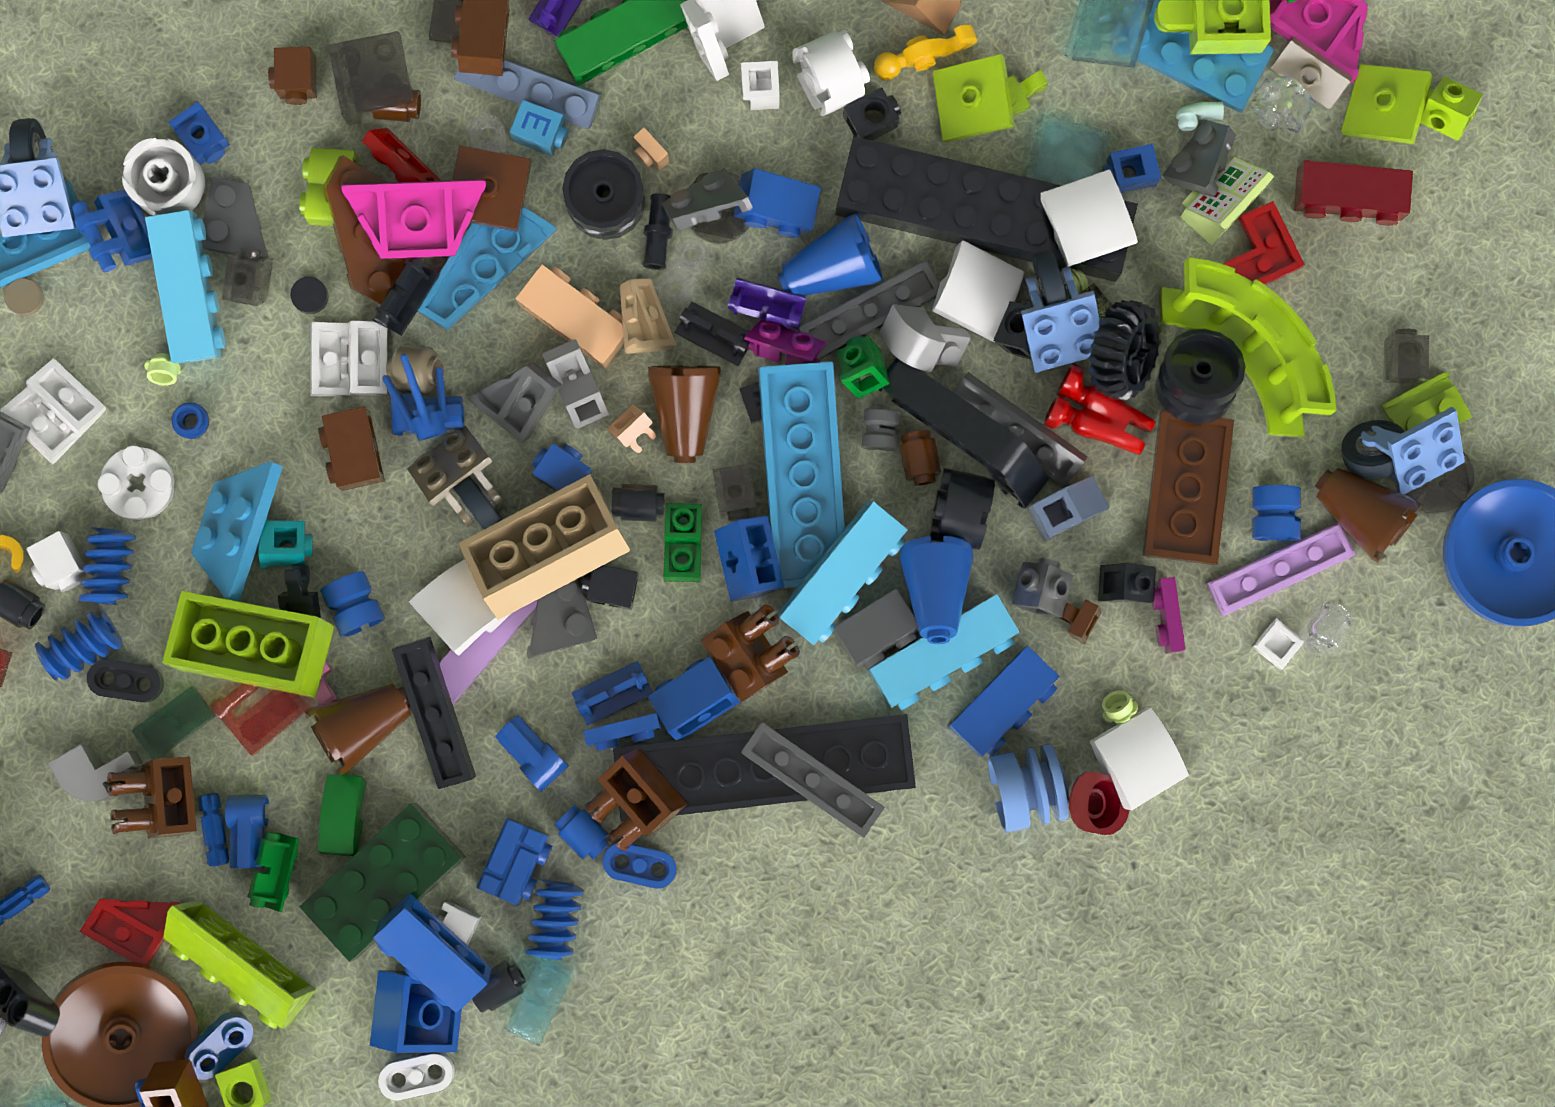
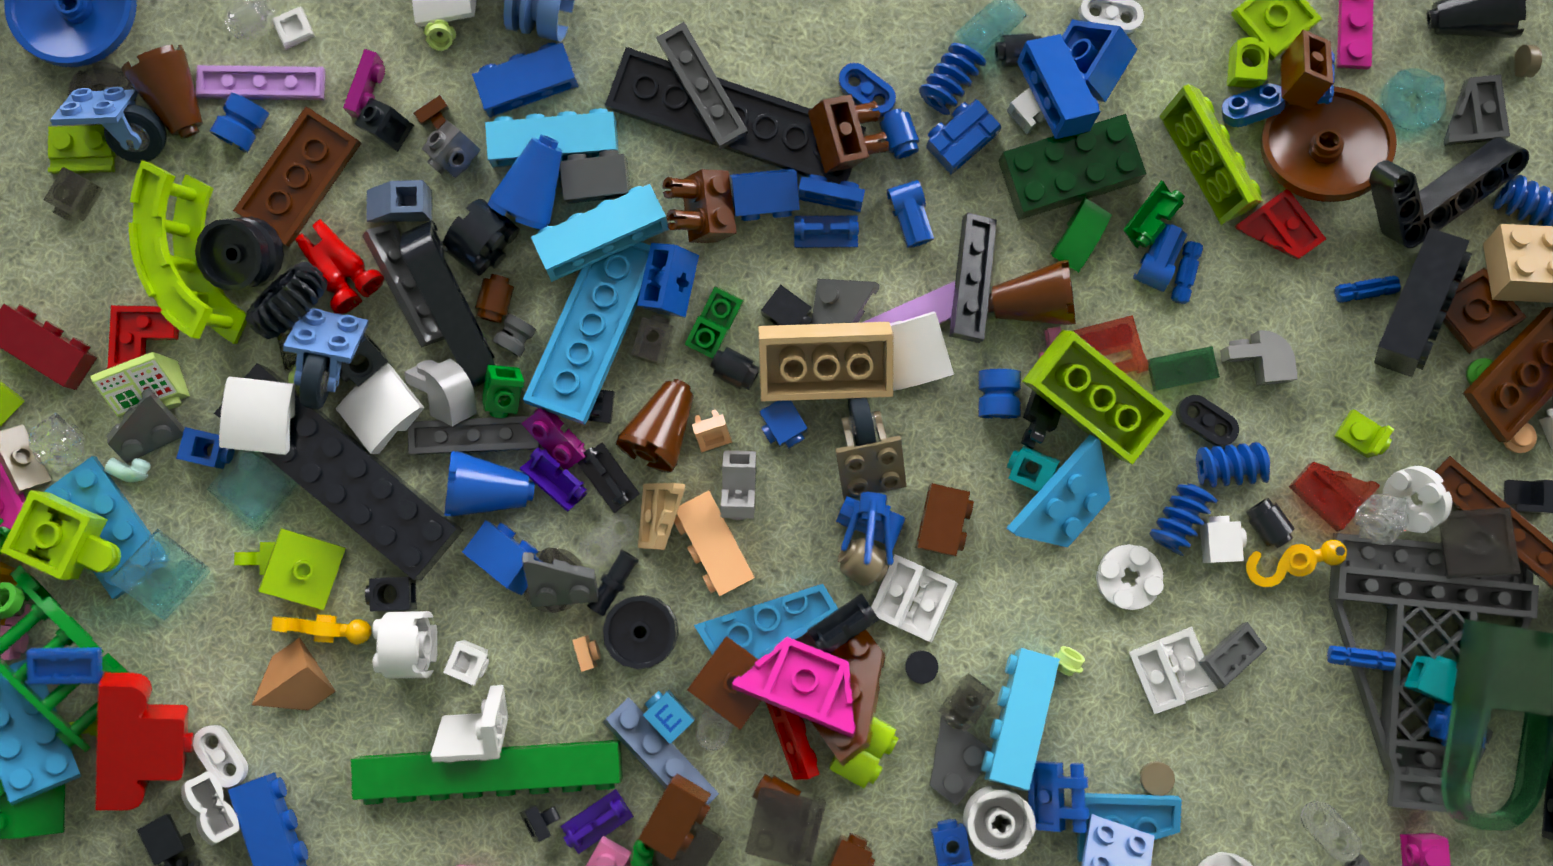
camera: 150 degrees left, 0 degrees up
(167, 797) = (1213, 307): reddish brown brick -> none
(180, 415) = (1075, 608): blue plate -> none
(518, 399) = (791, 496): dark grey wing -> none

